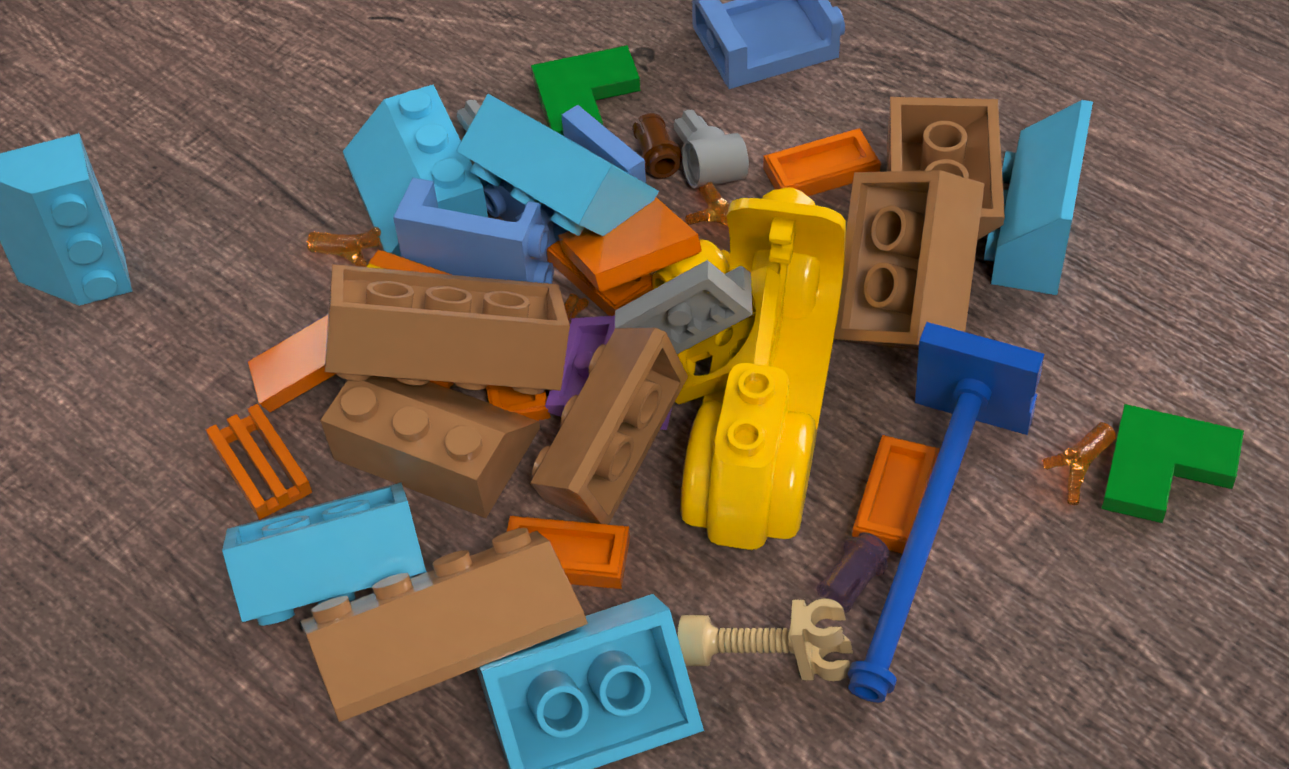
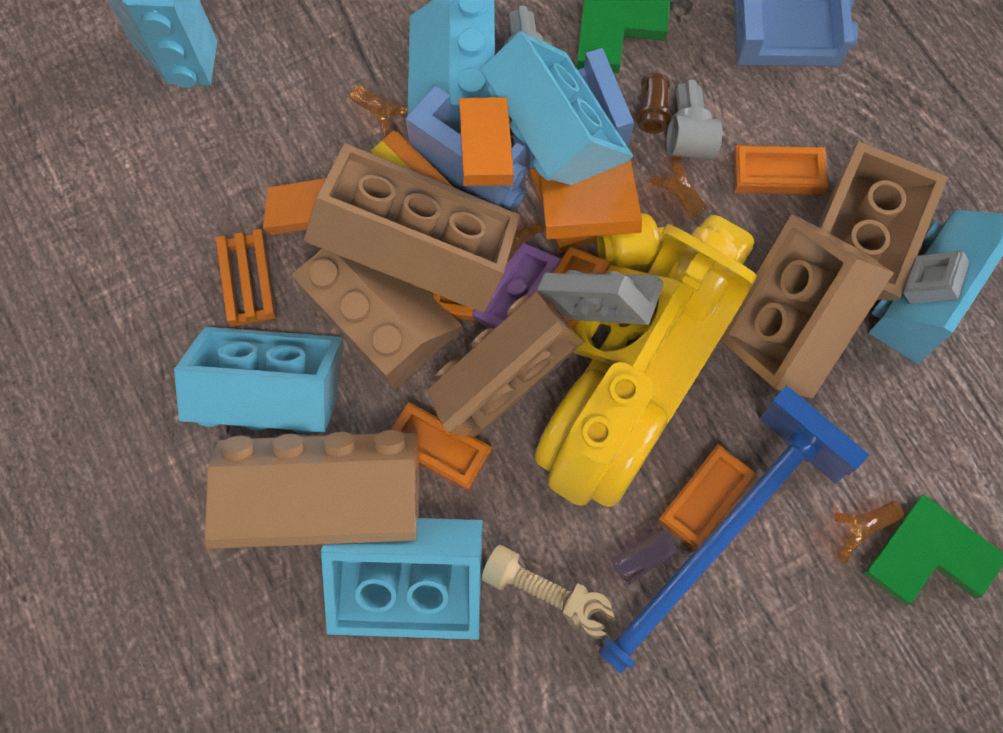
camera: 20 degrees right, 20 degrees up
(495, 206) = (485, 142): none -> orange tile
(1031, 184) = (936, 277): none -> light grey tile

